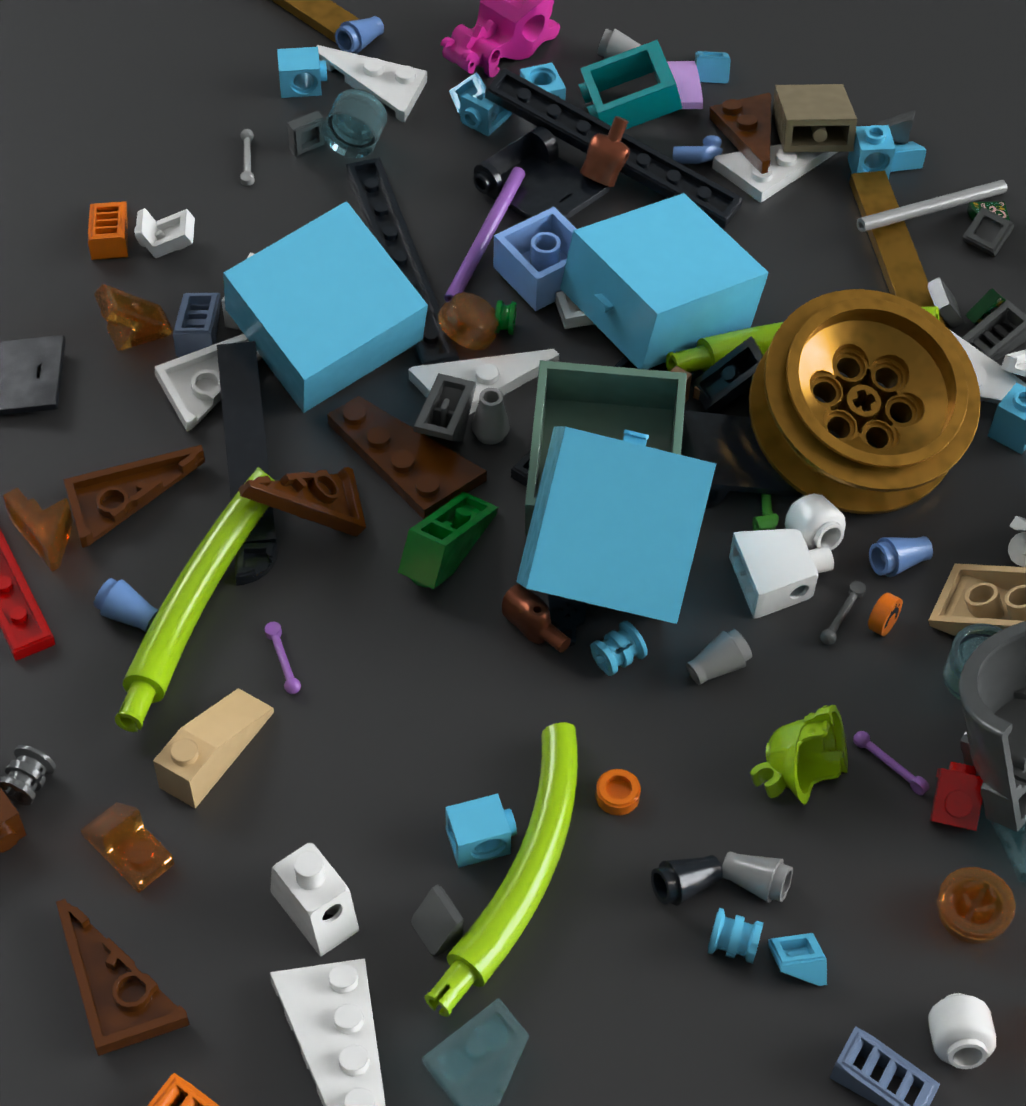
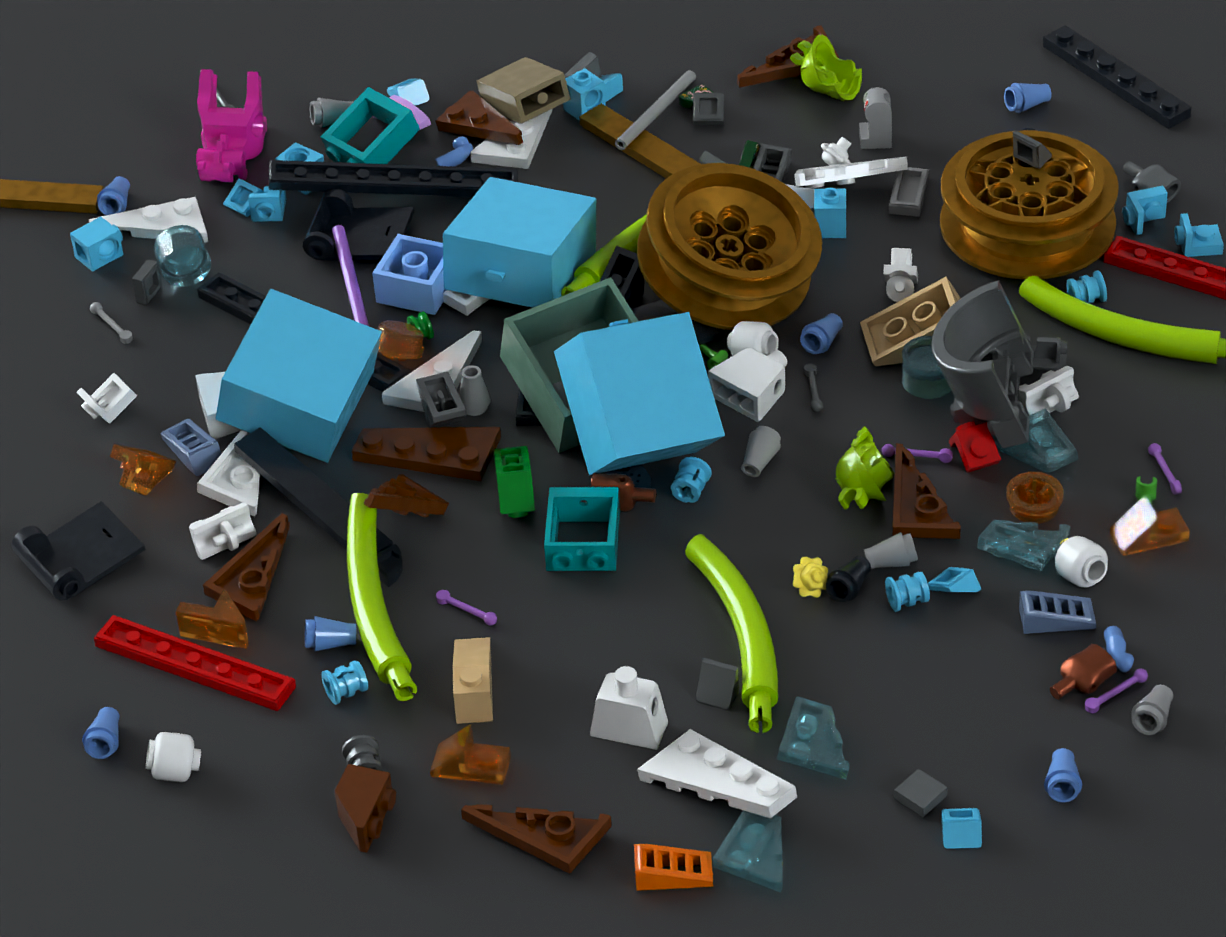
camera: 30 degrees left, 10 degrees down
(90, 671) = (344, 681): none -> medium azure bush
(108, 230) = (56, 421): orange slope -> none
(135, 431) = (222, 531): none -> white hips
(479, 830) = (696, 624): medium azure brick -> none
(482, 609) = (566, 506): none -> teal window
(606, 154) = (398, 183): copper piece -> none
(618, 792) = (762, 560): orange tile -> none
(643, 849) = (810, 576): none -> light yellow plant
(832, 834) = (916, 504): none -> reddish brown wing
(885, 614) = (843, 371): orange tile -> none
(918, 958) = (1022, 542): none -> clear light blue wing

